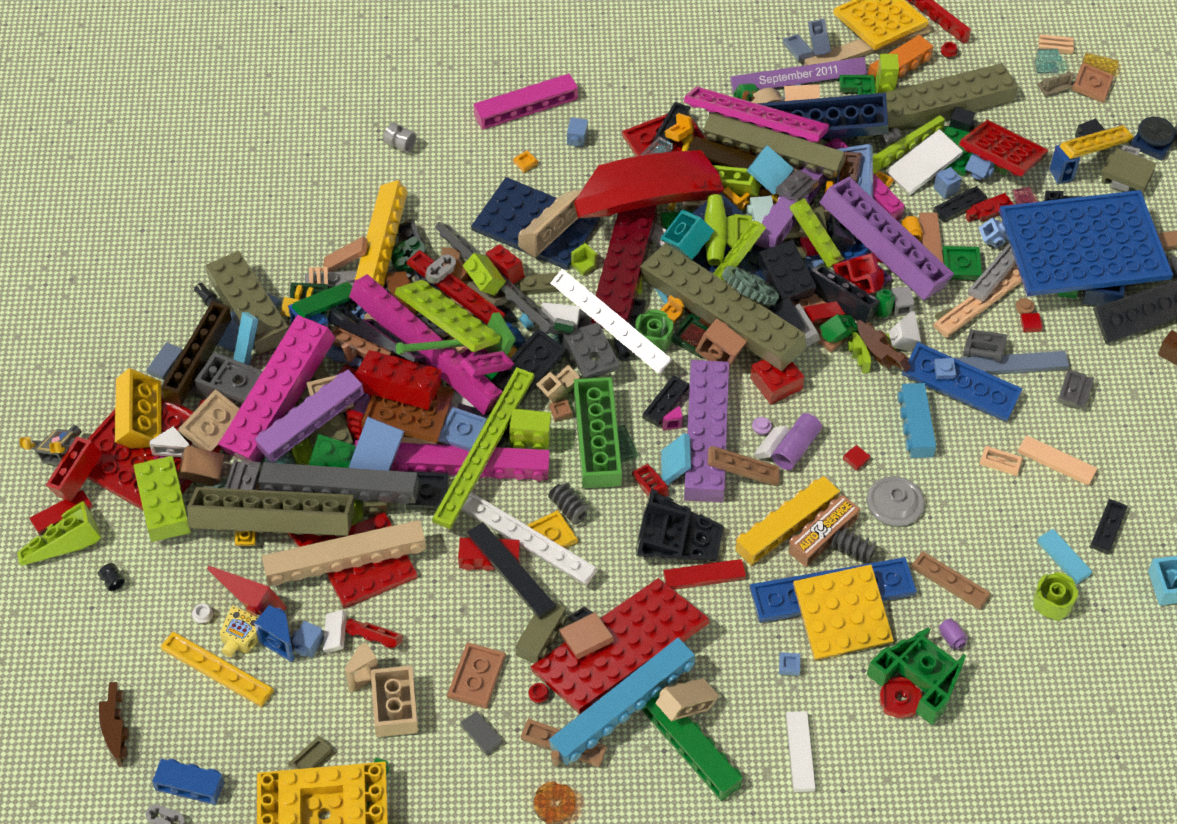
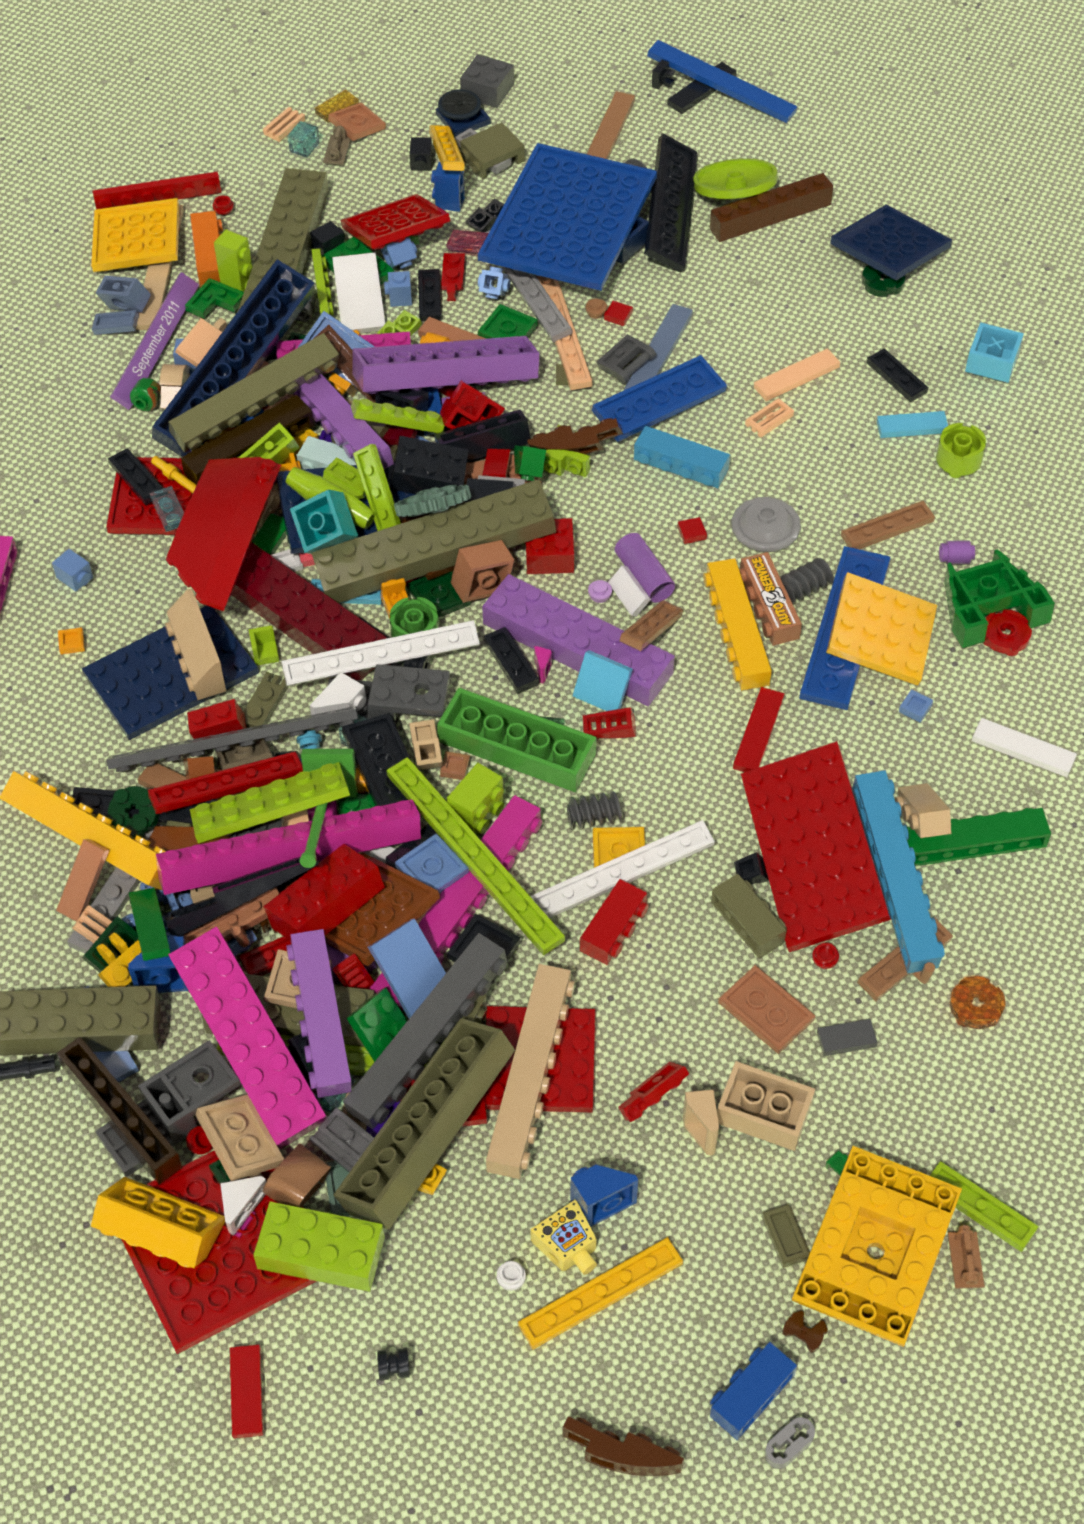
camera: 60 degrees left, 0 degrees up
(54, 446) = (144, 1349): torso -> none
(70, 534) = (291, 1396): lime wedge -> none
(74, 469) = (205, 1337): red brick -> none
(164, 361) = (87, 1163): sand blue tile -> none
(245, 338) = (139, 1042): medium azure tile -> none
(245, 803) = (812, 1337): none -> reddish brown piece
(251, 594) = (531, 1199): red wedge -> none
(307, 639) = (622, 1159): medium blue brick -> none
(334, 631) = (625, 1132): white tile -> none
(437, 266) = (200, 779): light grey beam -> none
(484, 273) = (230, 741): lime brick -> none
(487, 363) = (369, 793): dark pink plate -> none
(511, 570) = (658, 903): black tile -> none
(564, 325) = (362, 696): dark green tile -> none
(586, 635) = (787, 870): nougat tile -> none
(676, 532) = (691, 731): black wedge -> none
(681, 129) = (157, 466): light orange bracket -> none
(693, 335) = (443, 592): clear red tile -> none
(756, 113) = (206, 383): dark pink plate -> none
(769, 169) = (288, 411): medium azure tile -> none
(797, 186) = (327, 400): flat silver plate -> none
(886, 305) = (518, 402): green brick -> none
(903, 301) = (524, 397): light grey brick -> none
(905, 333) = (565, 411): white slope -> none
(915, 203) = (403, 323): none -> lime slope
(944, 368) = (640, 400): medium blue plate -> none
(1075, 389) = (724, 318): flat silver plate -> none

